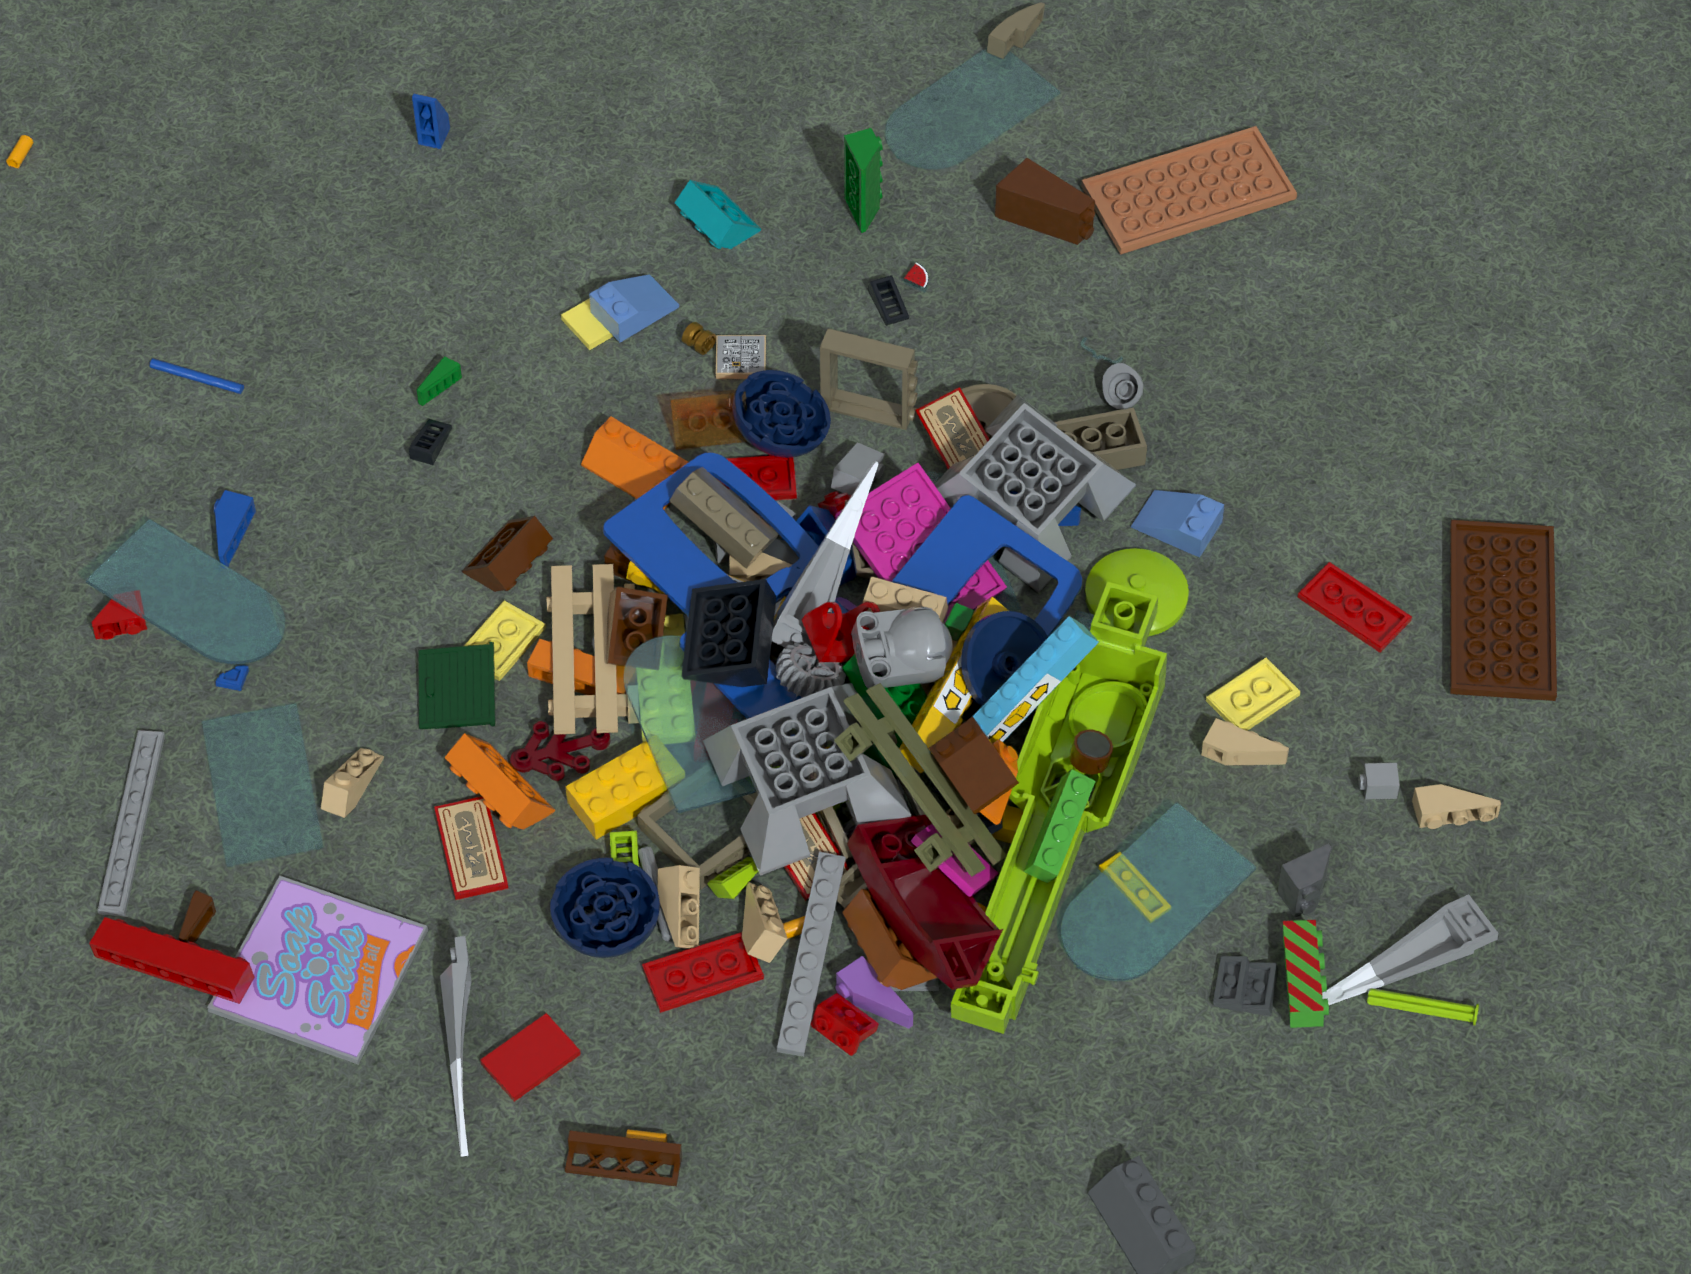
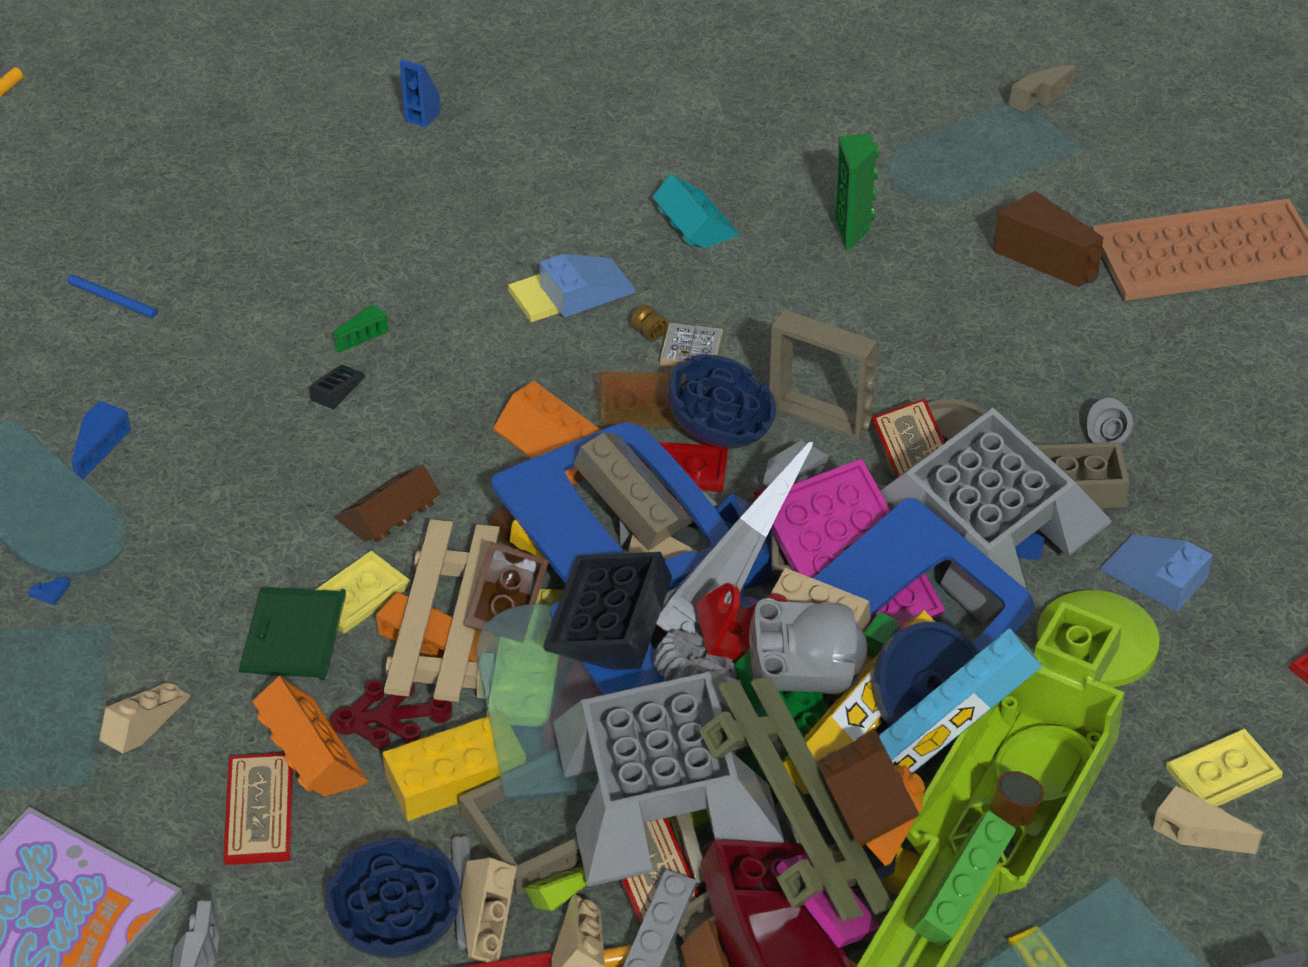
camera: 10 degrees right, 10 degrees down
(623, 838) = (438, 822): lime slope -> none
(882, 284) = (861, 297): black slope -> none
(917, 278) = (898, 296): tile -> none

